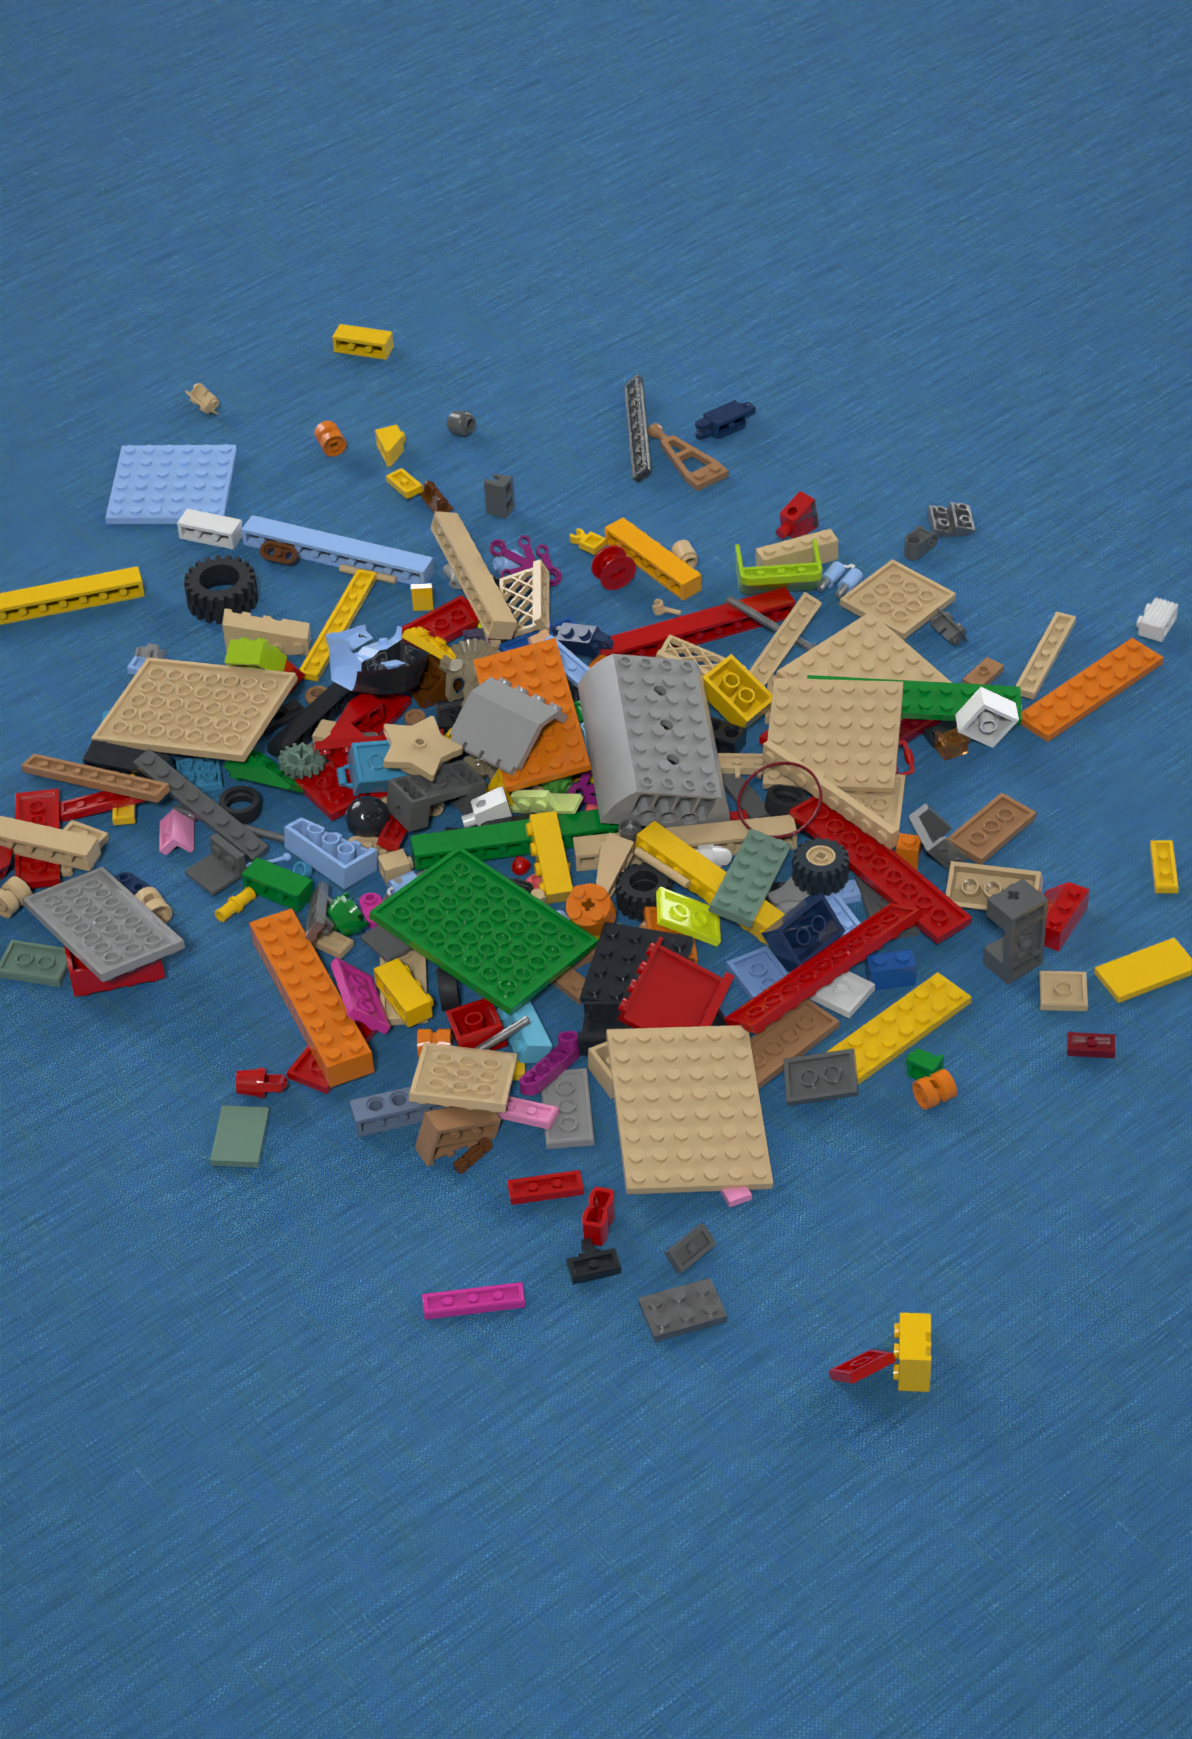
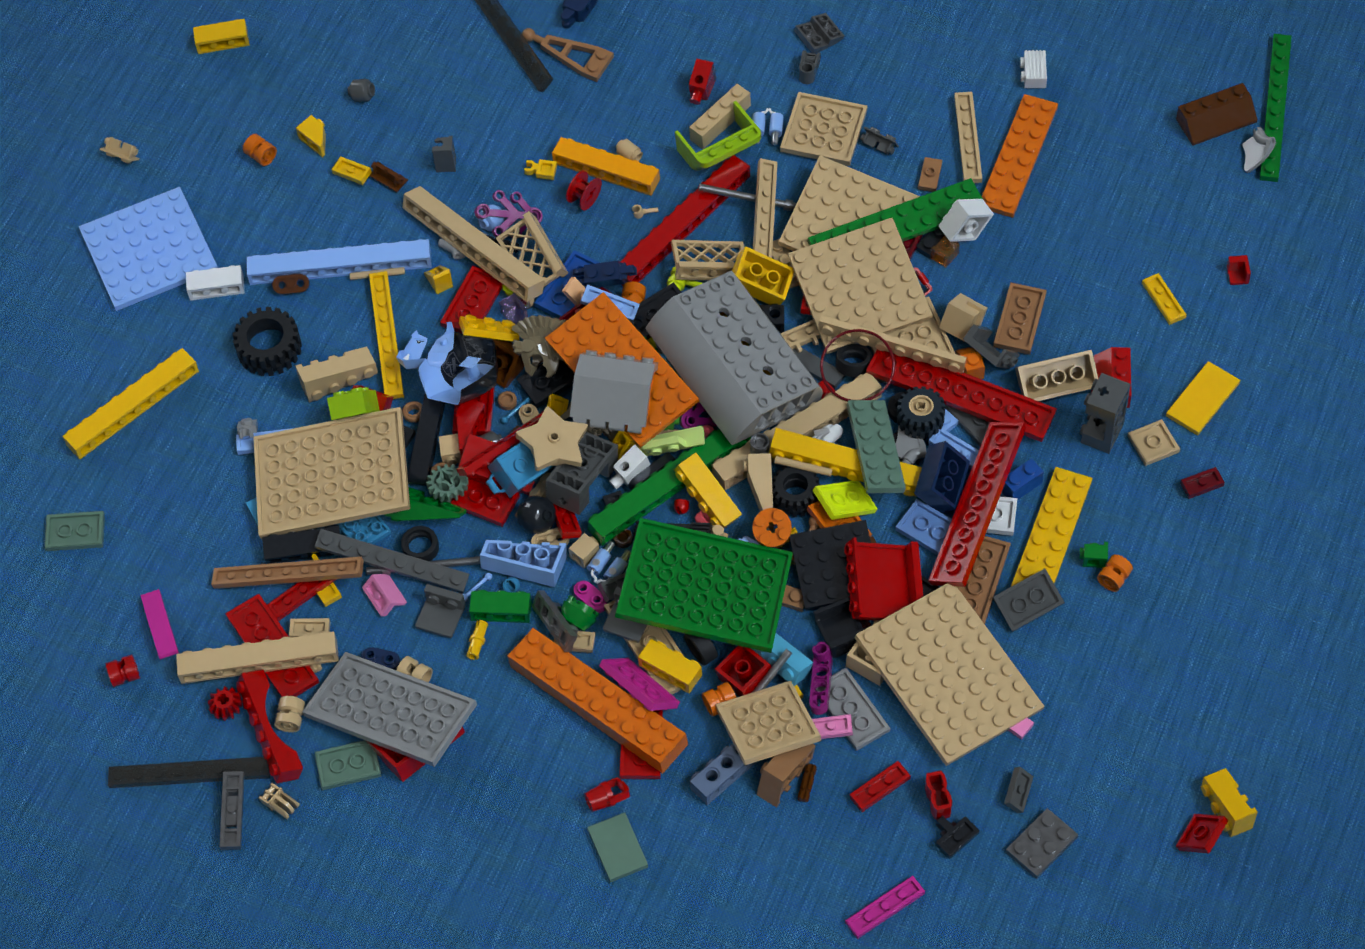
camera: 25 degrees left, 15 degrees up
(921, 791) = (961, 315): none -> tan plate

